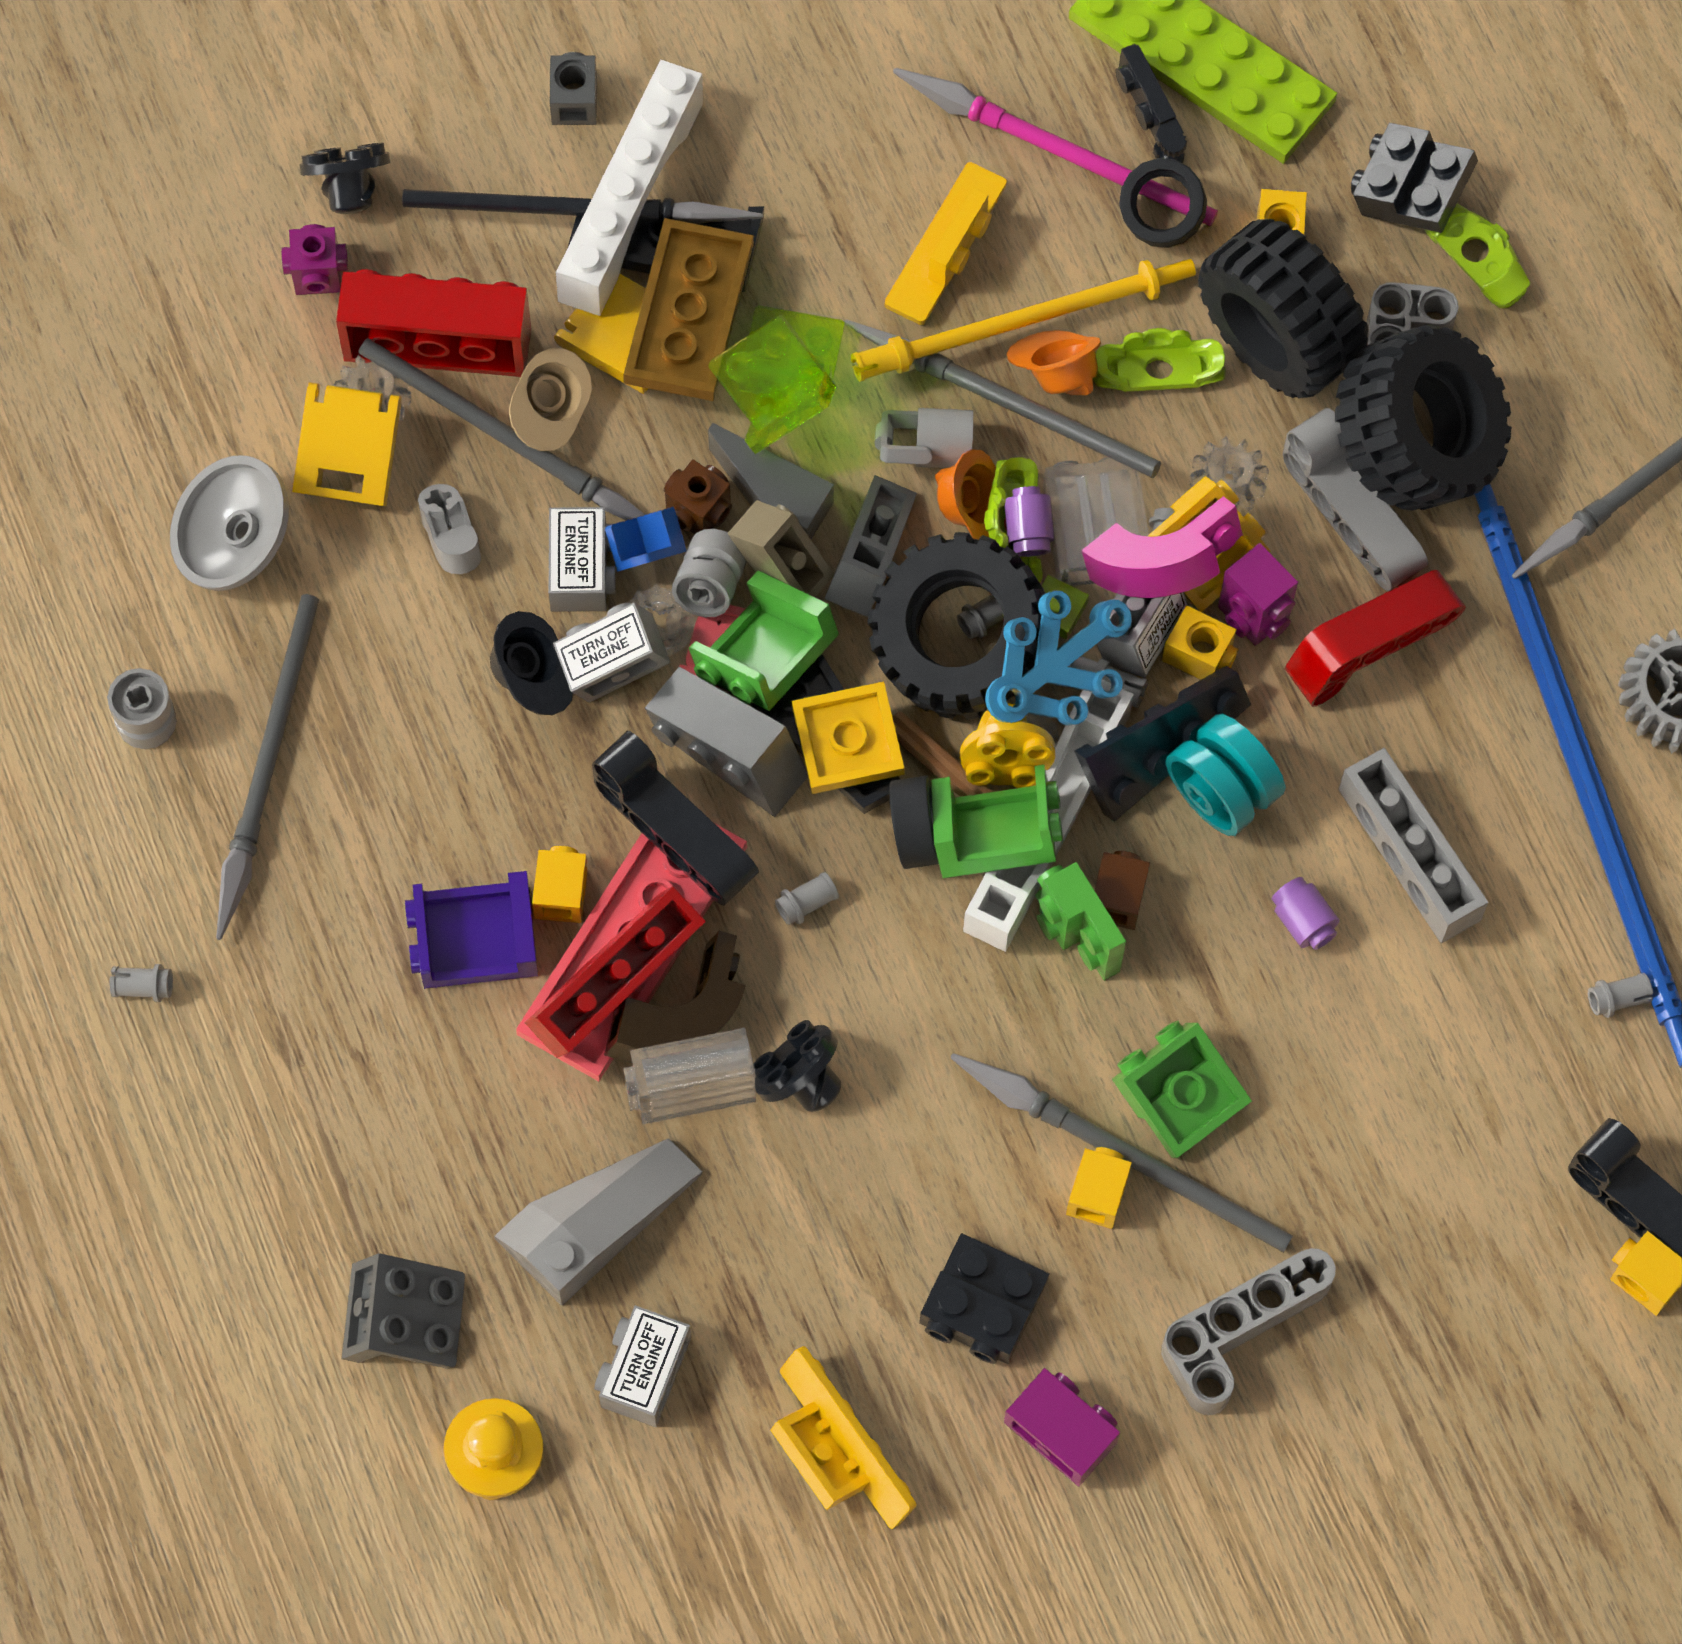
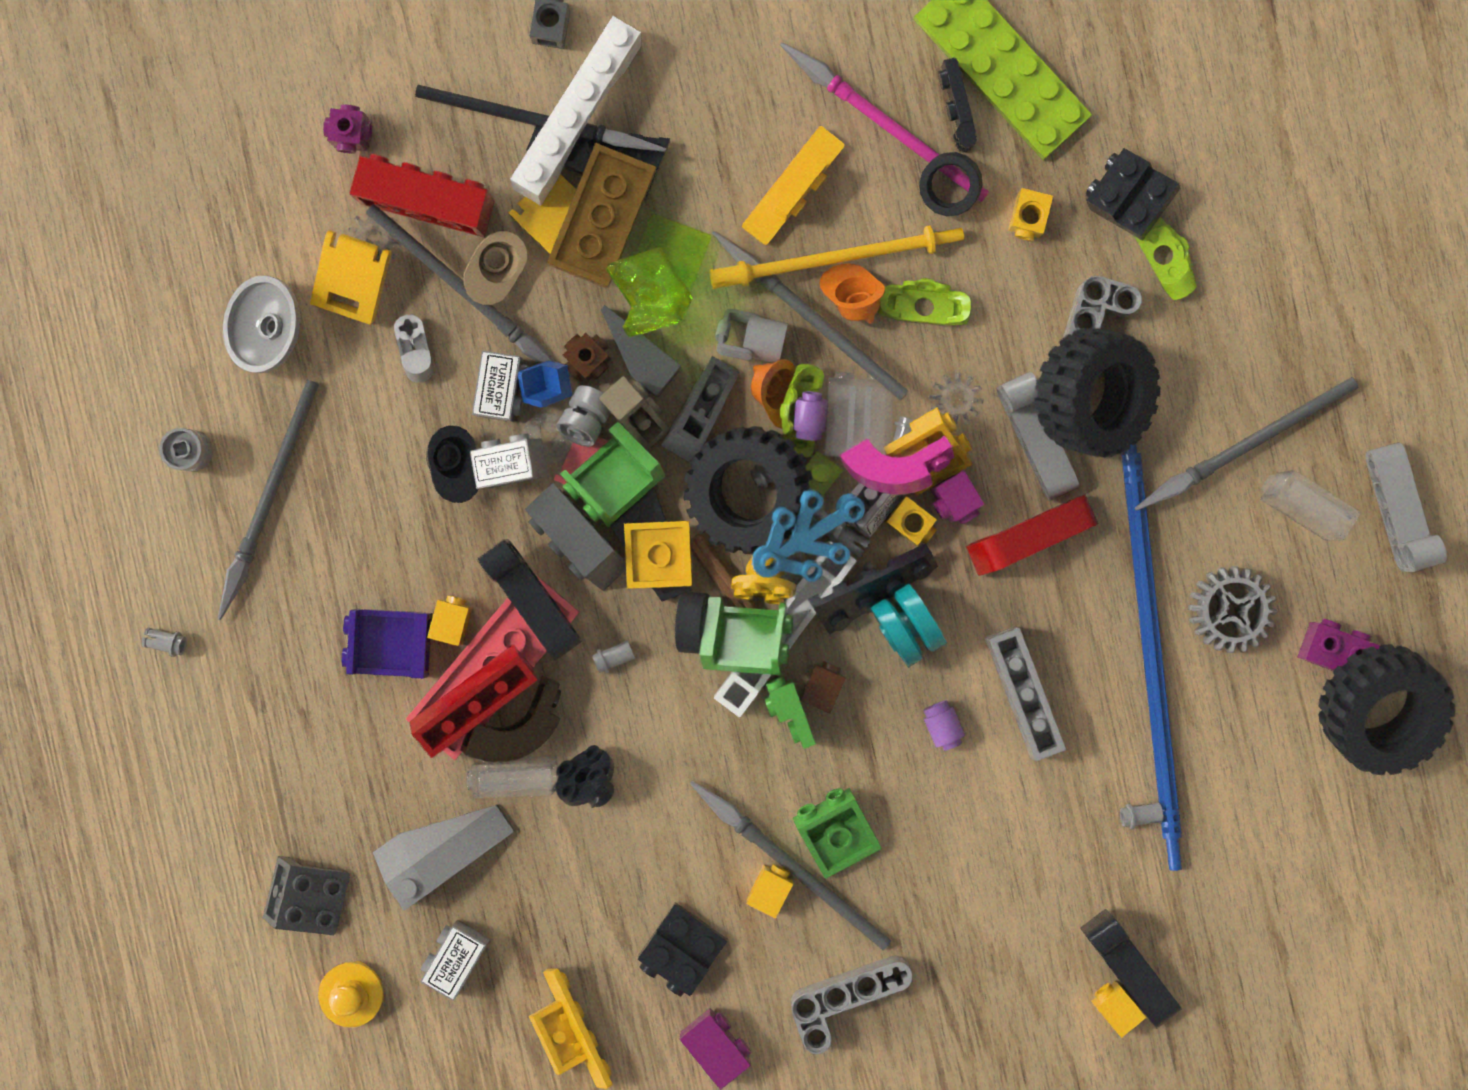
camera: 10 degrees right, 20 degrees up
(347, 176) = (379, 64): black plate -> none
(1283, 308) = (1017, 293): black tyre -> none

